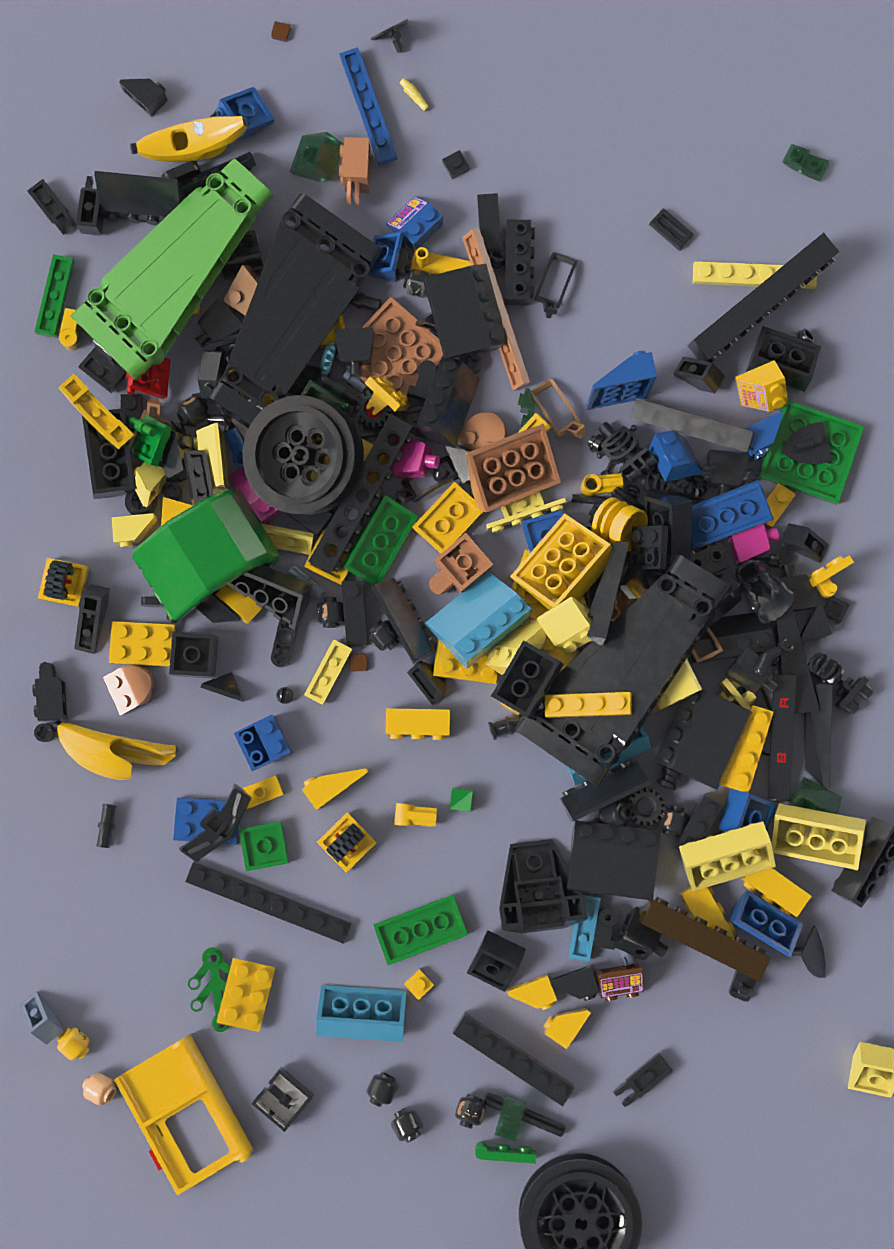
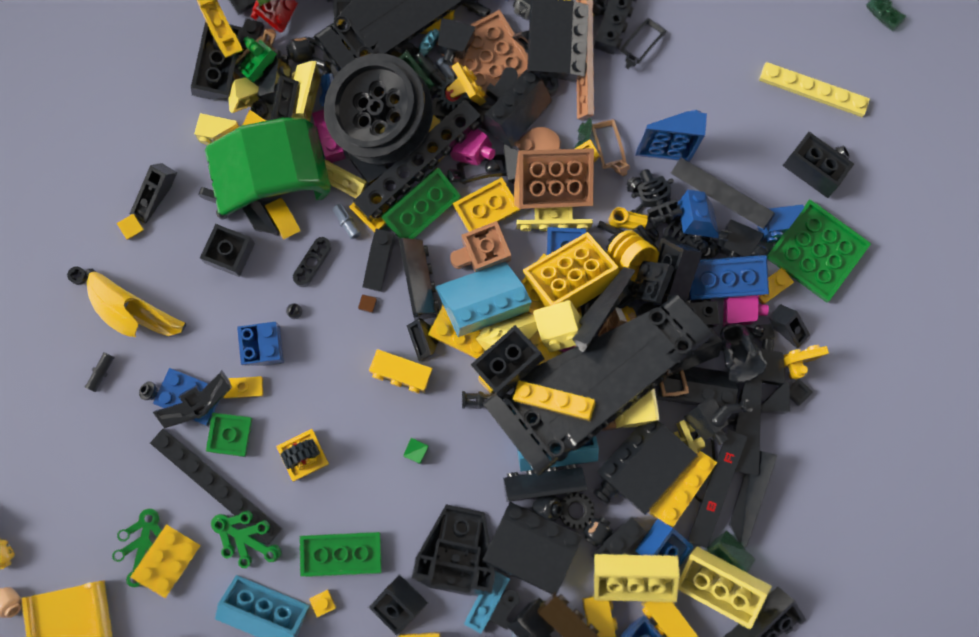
camera: 10 degrees right, 5 degrees down
(50, 695) = (93, 245): black hinge -> none
(63, 582) = (139, 153): plate -> none
(80, 662) = (130, 226): none -> yellow tile
(130, 687) = (164, 261): nougat slope -> none
(134, 507) = (224, 113): black gear -> none
(141, 643) = (186, 227): yellow plate -> none
(164, 829) = (148, 391): none -> black plate
(210, 371) = (325, 17): black slope -> none
(224, 685) = (245, 285): black slope -> none
(276, 592) = (316, 219): black wedge -> none
(315, 945) = (242, 537): none -> green plant
(327, 787) = (300, 401): yellow slope -> none
(328, 672) = (338, 303): light yellow plate -> none
(330, 613) = (357, 253): black head -> none
(383, 635) = (396, 287): black head -> none
(411, 815) = (368, 450): yellow piece -> none
(678, 245) = (742, 21): black tile -> none
(699, 374) = (742, 155): black slope -> none
(762, 388) = (793, 181): yellow slope -> none
(766, 296) = (816, 107): black brick -> none
(808, 445) = (818, 243): black shield -> none
(825, 669) = (774, 440): black gear -> none
(859, 687) = (785, 476): black hips -> none

